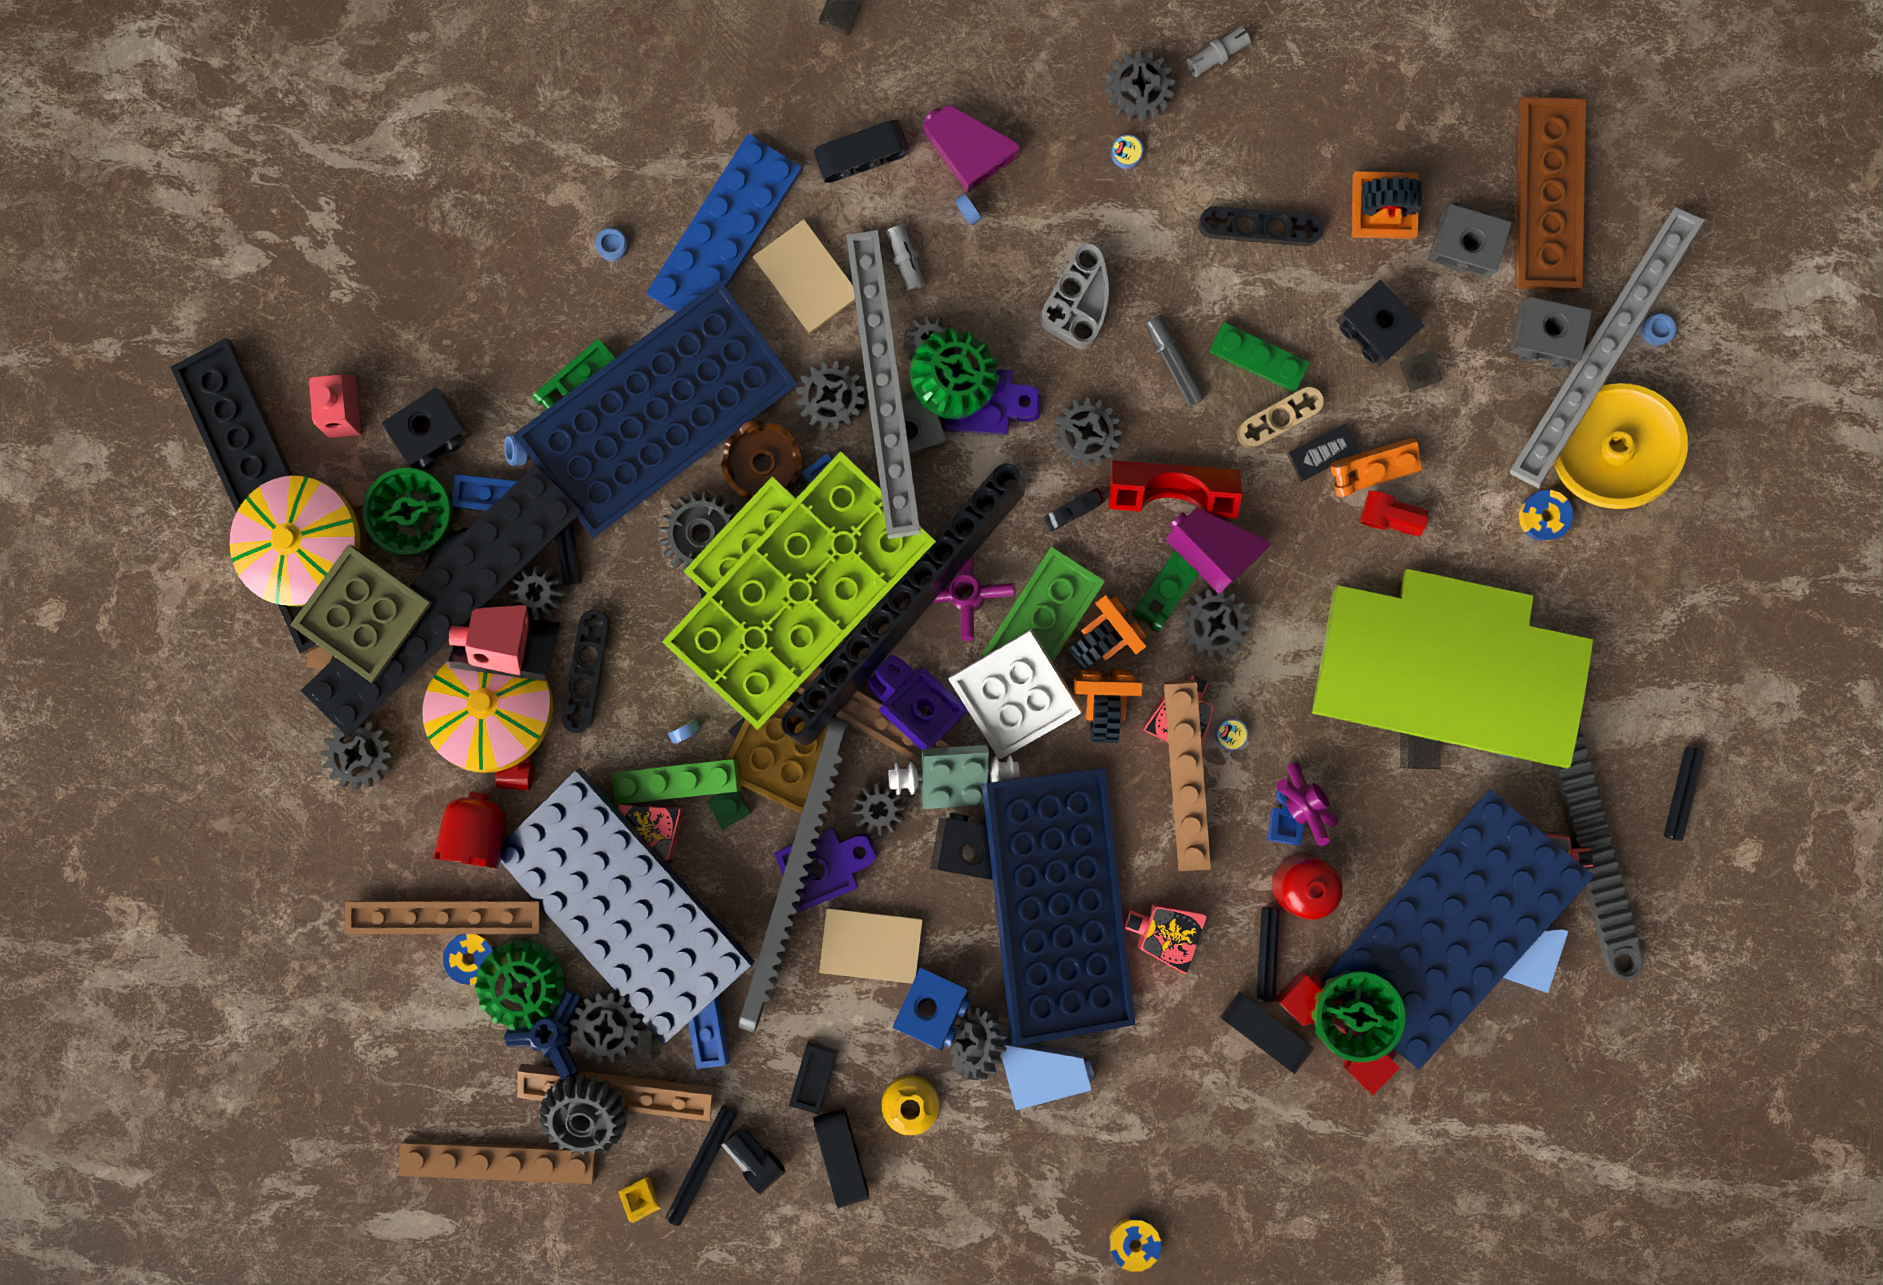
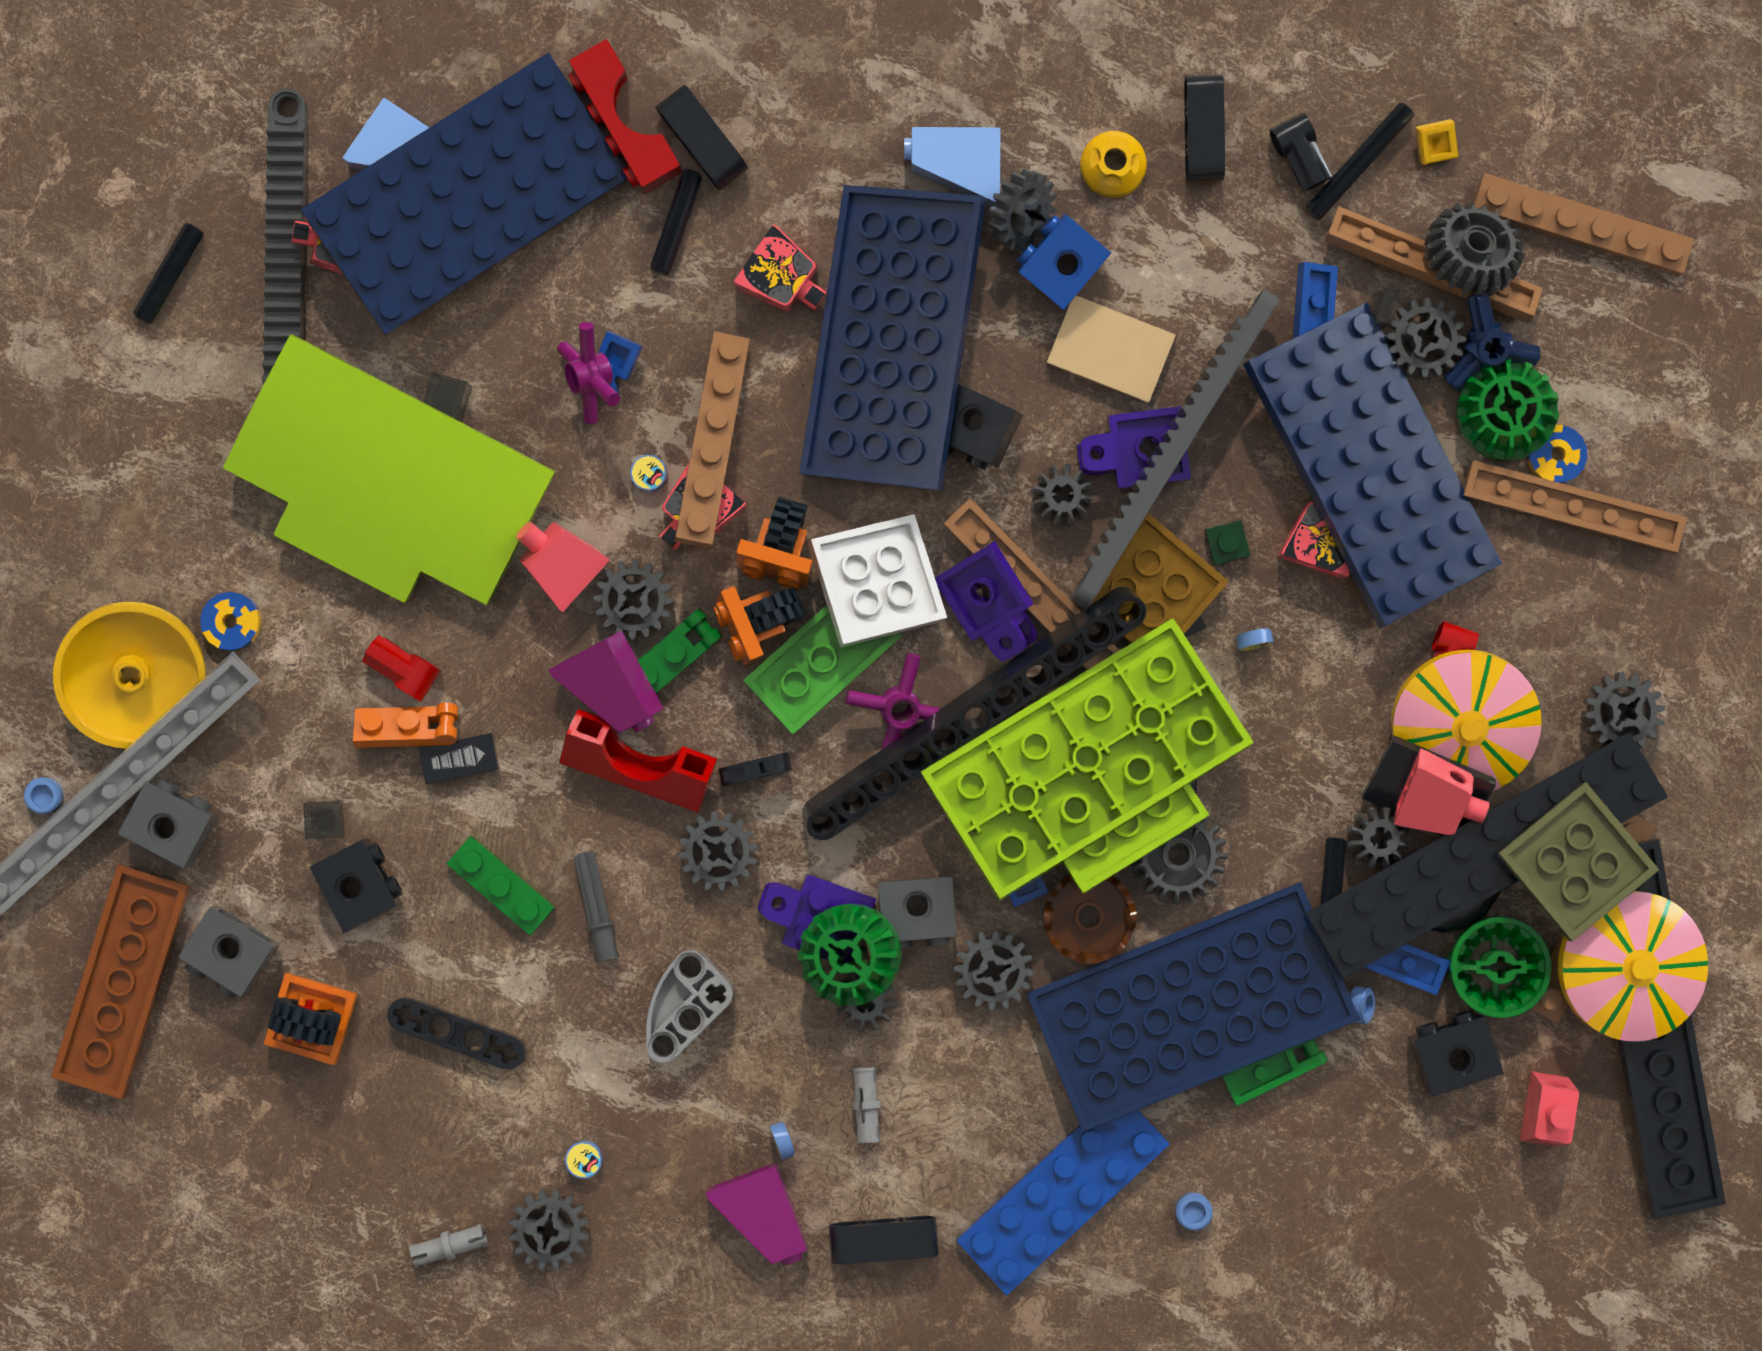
camera: 160 degrees left, 0 degrees up
(471, 831) = (1518, 591): red cylinder -> none
(580, 670) = (1350, 738): black beam -> none
(676, 781) = (1278, 586): bright green plate -> none
(806, 276) = (983, 1114): tan tile -> none
(813, 1078) = (1212, 222): black tile -> none
(883, 385) = (931, 964): light grey plate -> none
(952, 776) = (971, 509): sand green plate -> none
(1286, 638) = (559, 561): none -> coral torso
(1296, 399) = (471, 827): tan beam -> none
(1307, 886) = (613, 283): red cylinder -> none
(1382, 1028) = (571, 113): green gear -> none

